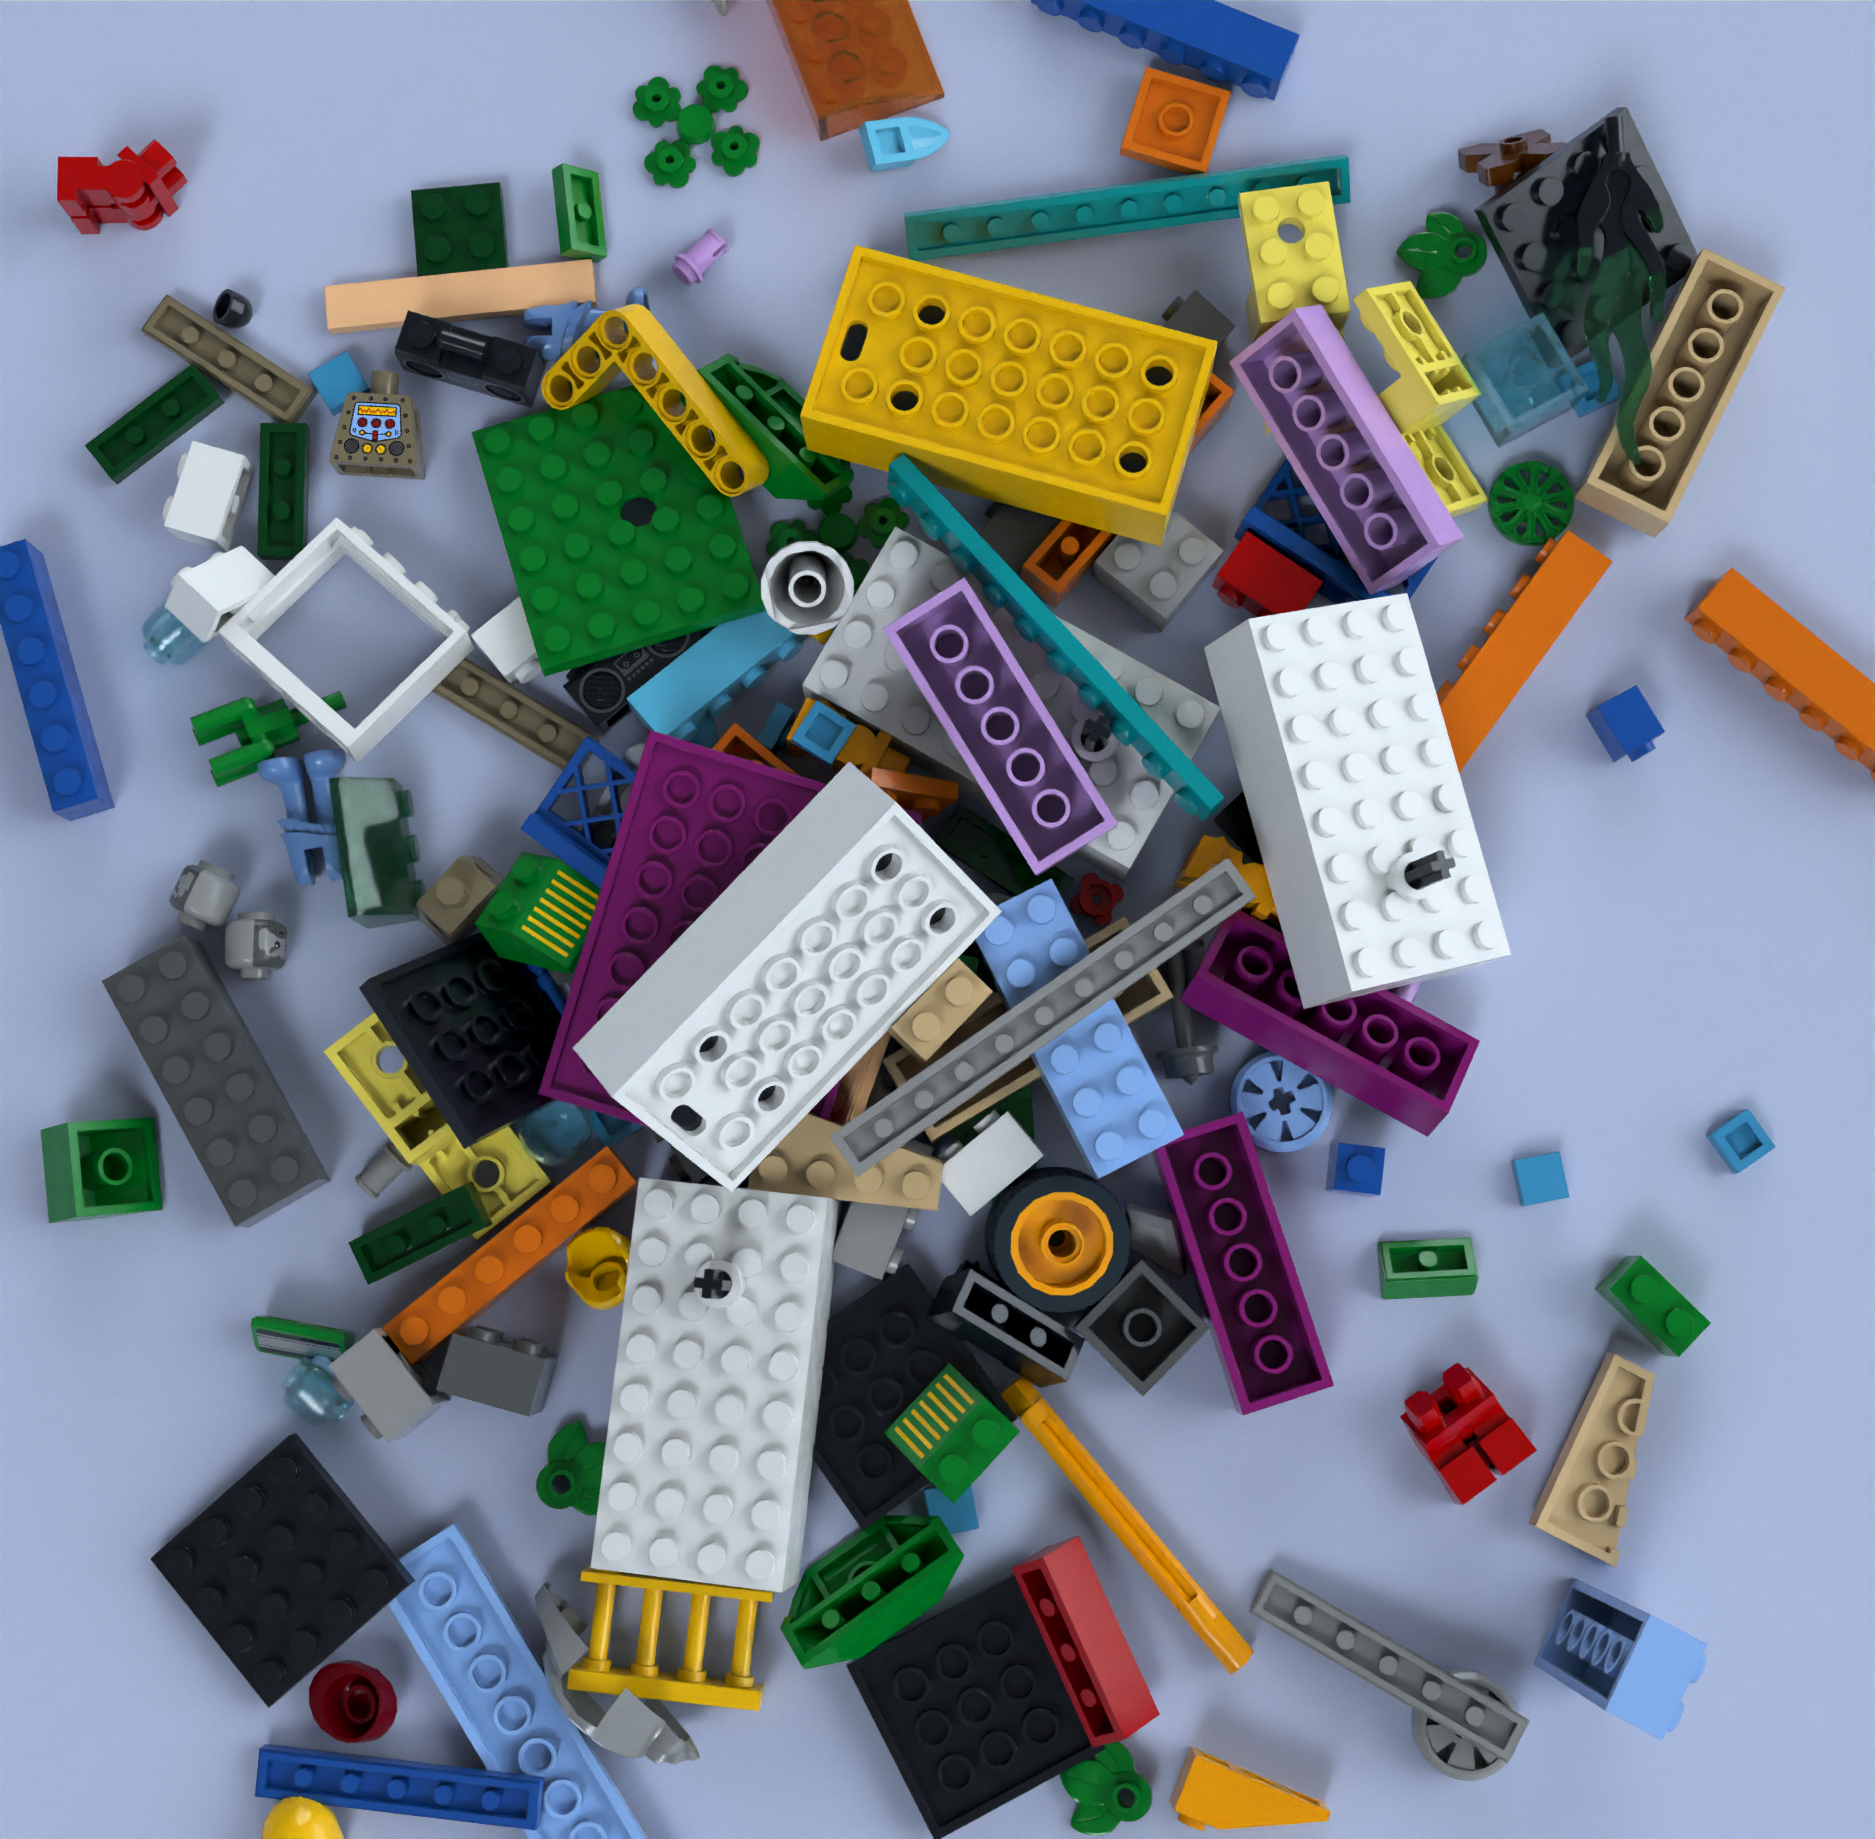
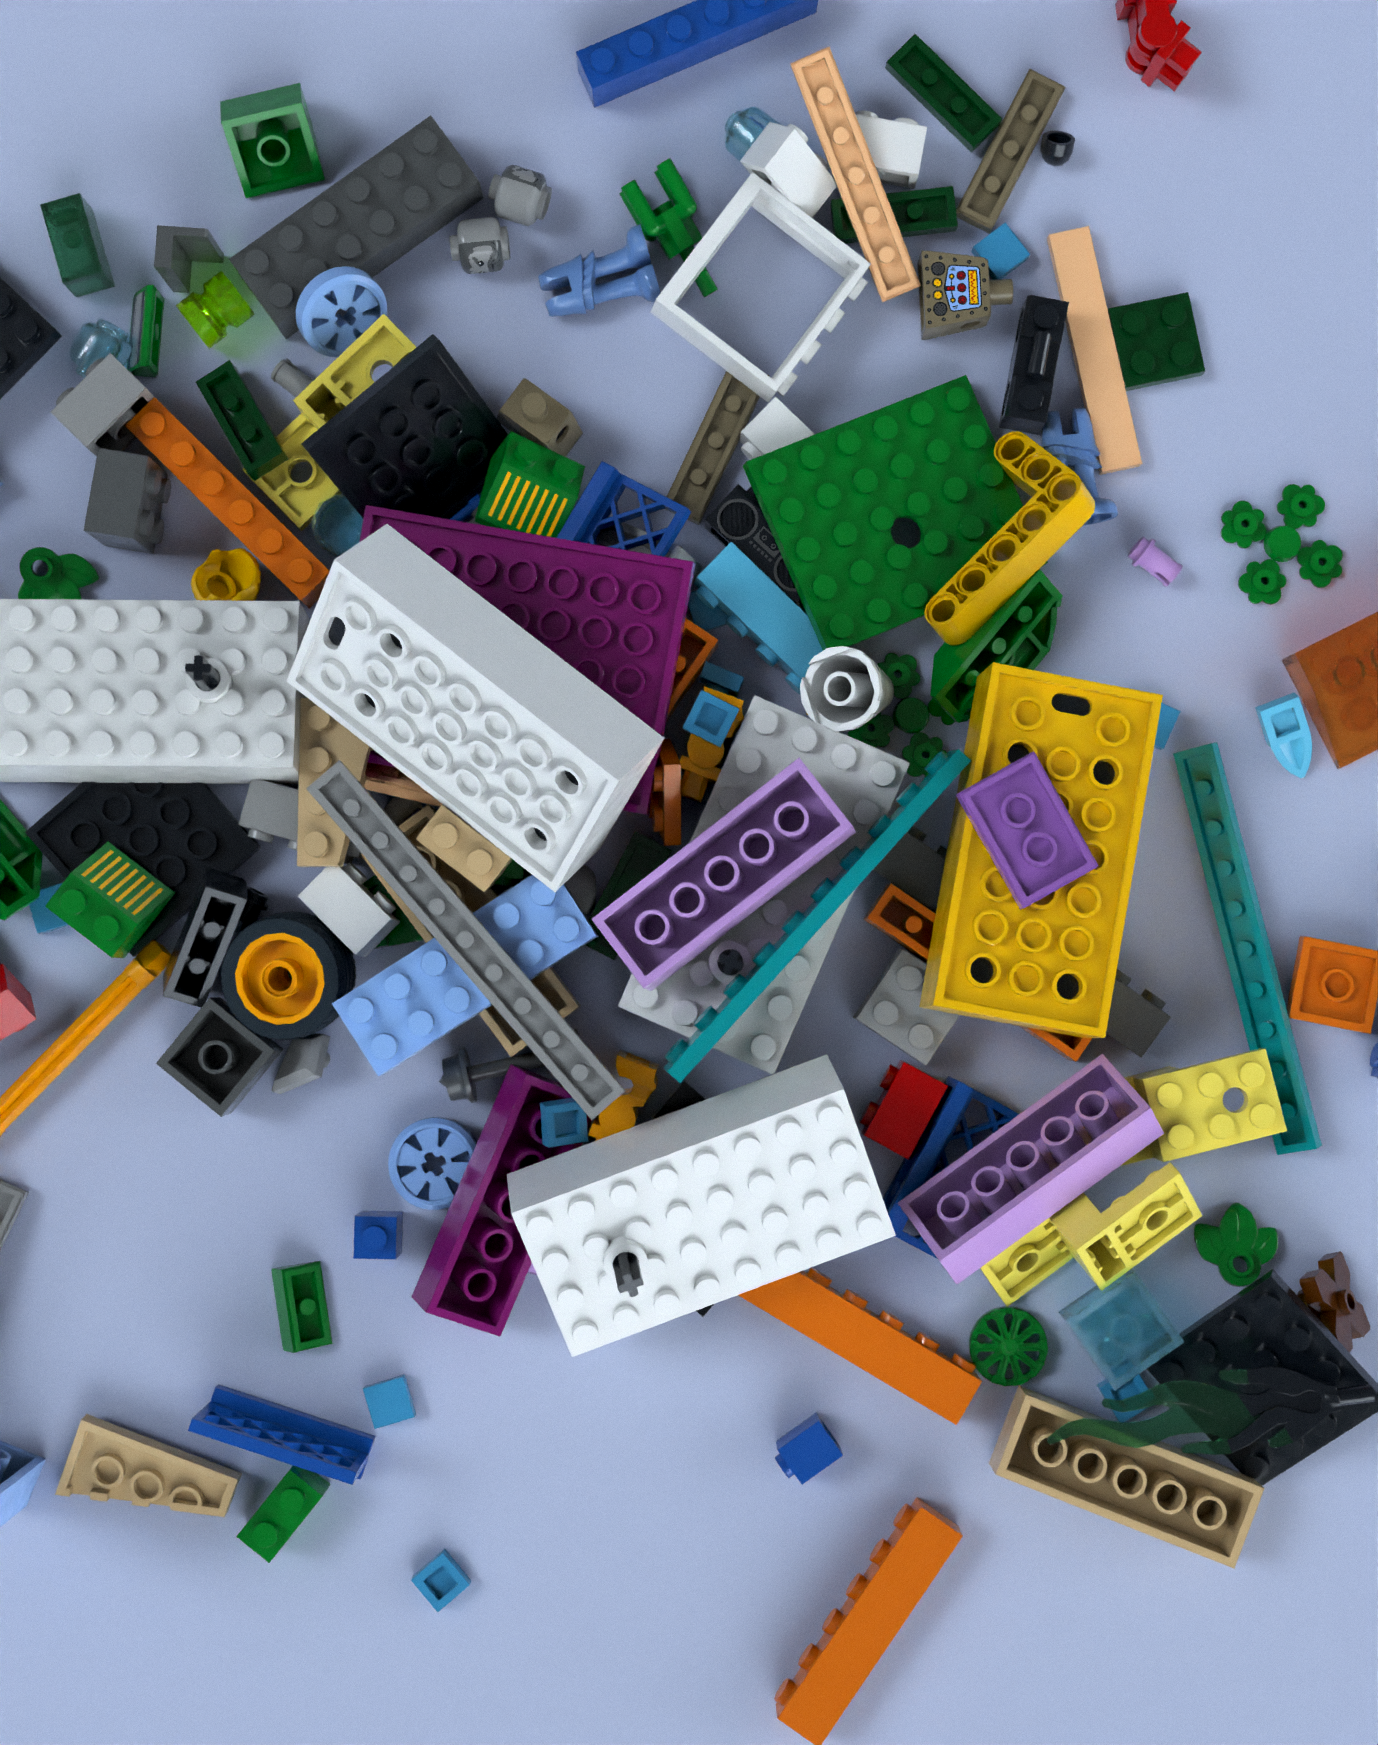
camera: 85 degrees right, 5 degrees up
(192, 1405) = (77, 245): none -> clear green panel
(210, 1277) = (178, 248): none -> dark grey panel
(234, 522) = (855, 174): none -> light nougat tile
(287, 1106) = (327, 293): none -> light blue wheel
(288, 1252) = (215, 309): none -> clear neon green wheel
(376, 850) = (573, 338): slope -> none
(579, 213) = (1183, 446): green plate -> none
(987, 397) = (1027, 830): none -> medium lavender tile
(1109, 897) = (604, 993): red plate -> none
(1241, 1265) = (281, 1141): magenta brick -> none
(1251, 942) = (563, 1123): none -> dark azure tile
(1453, 1415) = (160, 1333): red hips -> none
(1568, 1294) = (284, 1434): none -> blue fence

